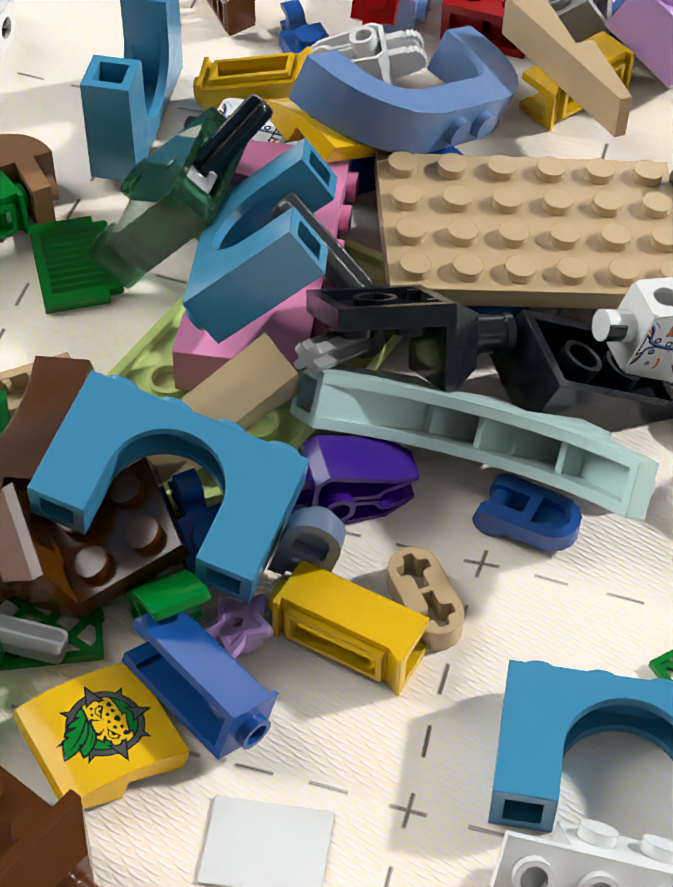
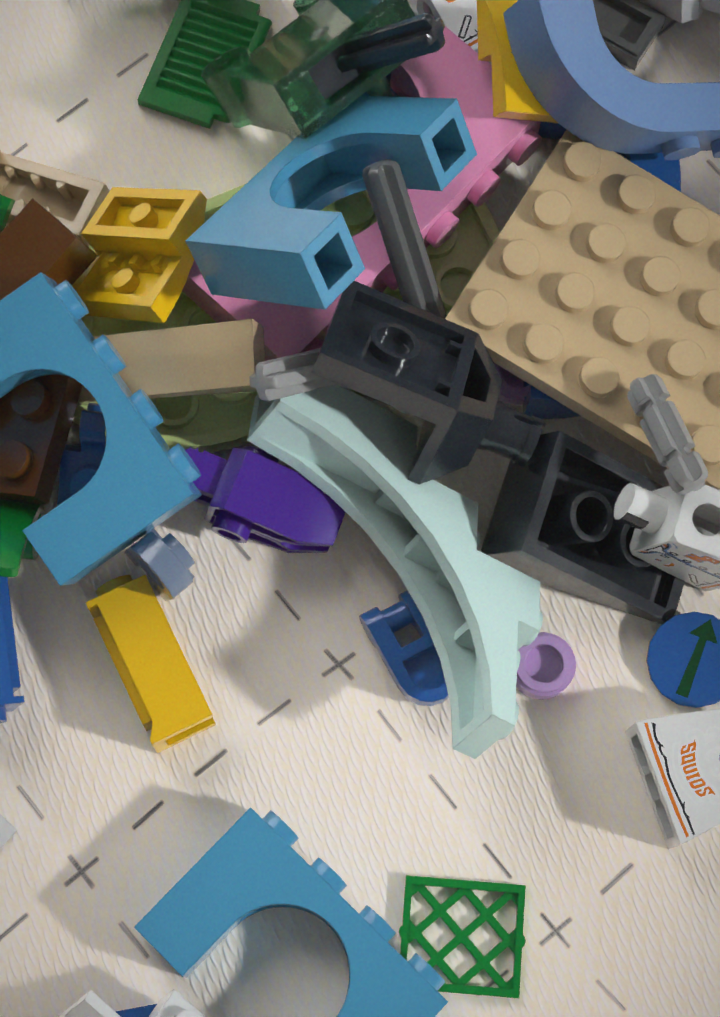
camera: 30 degrees right, 25 degrees up
(144, 347) = (140, 252): none -> yellow slope
(249, 634) = (58, 610): lavender plate -> none
(435, 593) = (234, 668): tan beam -> none
(598, 263) = (667, 434): none -> light grey axle

